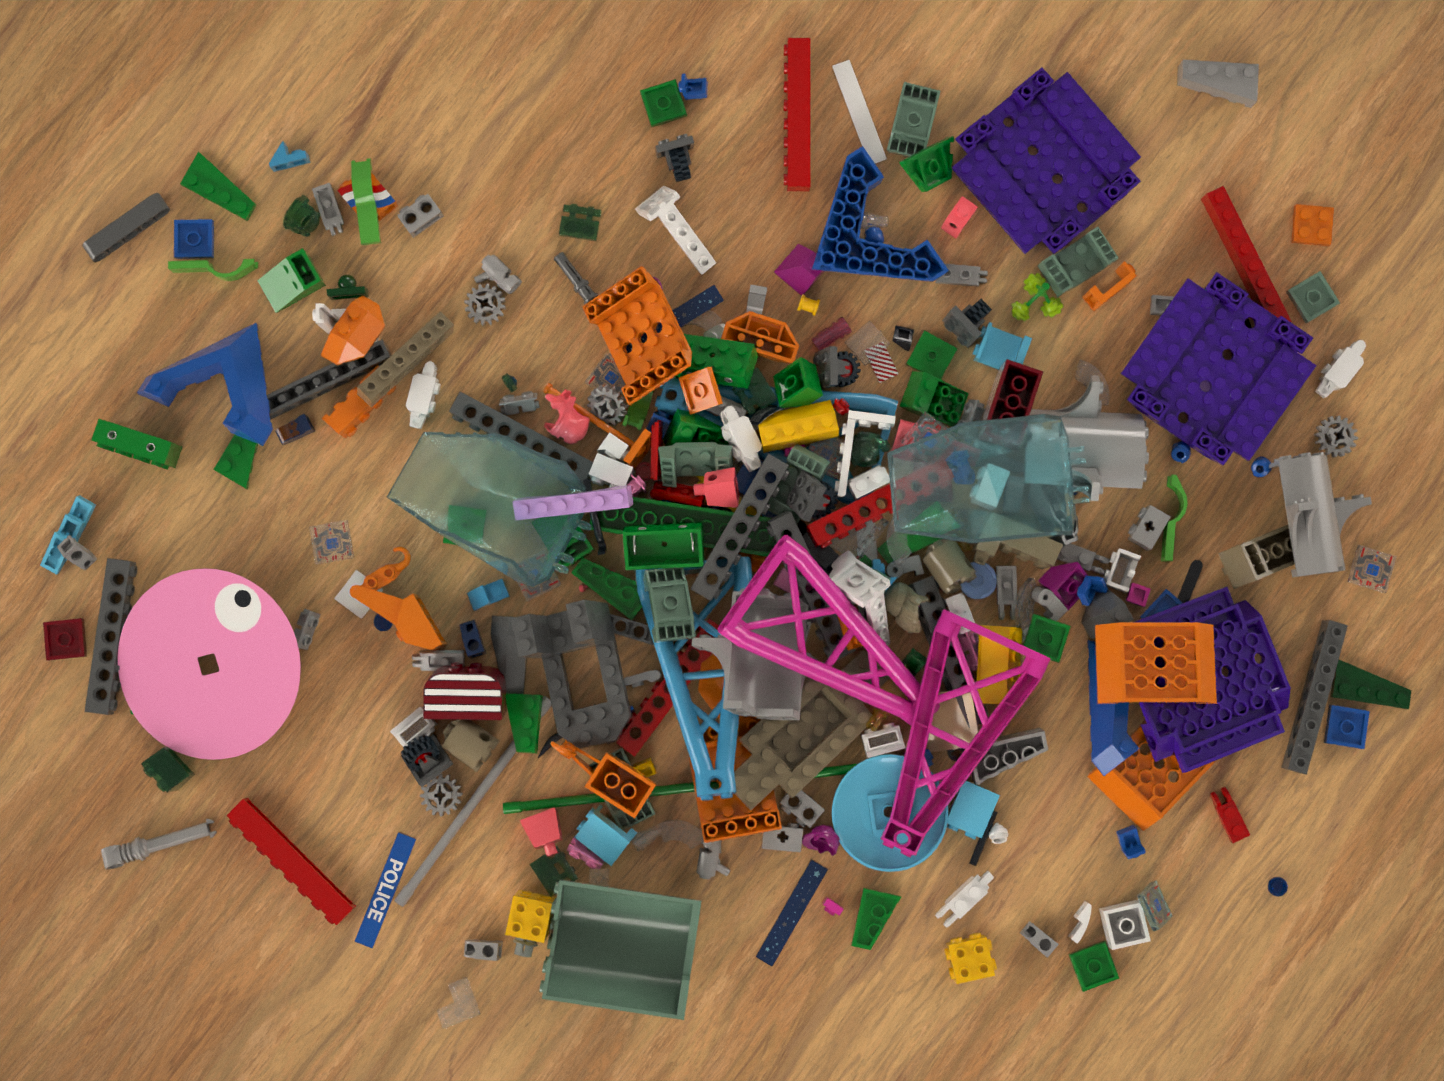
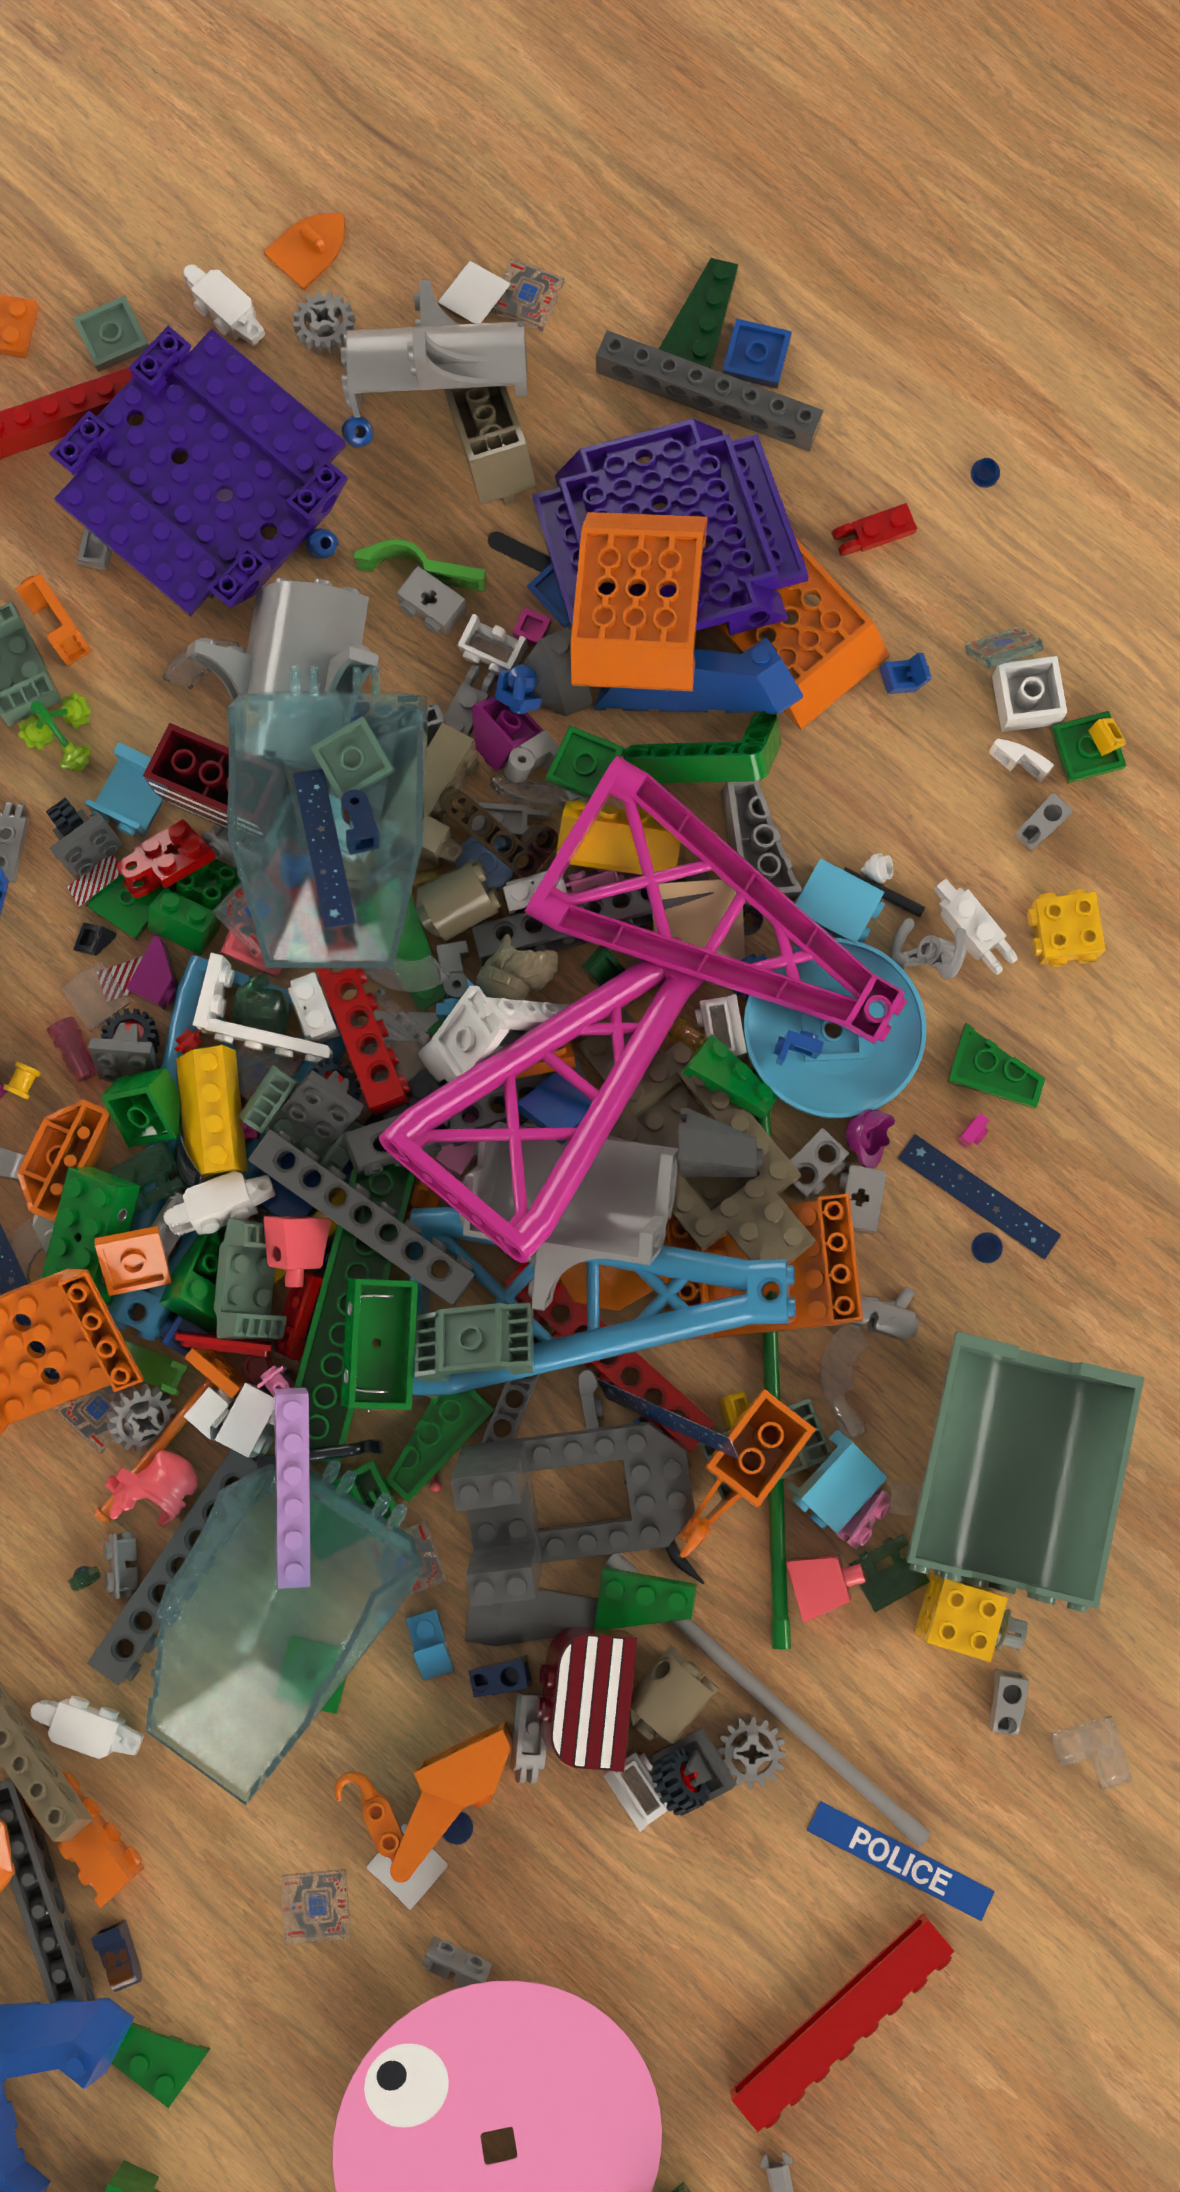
camera: 80 degrees left, 5 degrees down
(633, 727) = (668, 1419): none -> dark blue sticker
(759, 919) = (986, 1247): none -> clear blue plate
(802, 742) = (715, 1149): none -> dark grey slope
(820, 640) = (554, 1104): none -> blue tile
(852, 746) = (726, 1072): none -> green wing
(876, 793) = (802, 1043): none -> blue bracket
(882, 379) = (155, 976): none -> magenta slope
(941, 334) = (95, 880): none -> sticker
(945, 872) = (931, 951): none -> light grey piece
(953, 371) = (157, 864): none -> red plate
(969, 479) = (324, 849): none -> dark blue sticker
(993, 498) = (359, 816): none -> dark blue leg
(996, 583) = (492, 829): none -> dark brown beam
(1029, 491) = (352, 758): none -> sand green plate
(1056, 720) = (712, 761): none -> green beam
(1098, 592) = (522, 681): none -> blue plate
(1101, 977) = (1106, 735): none -> yellow slope
(1368, 533) = (474, 293): none -> white sticker
(1390, 419) = (308, 247): none -> orange shield

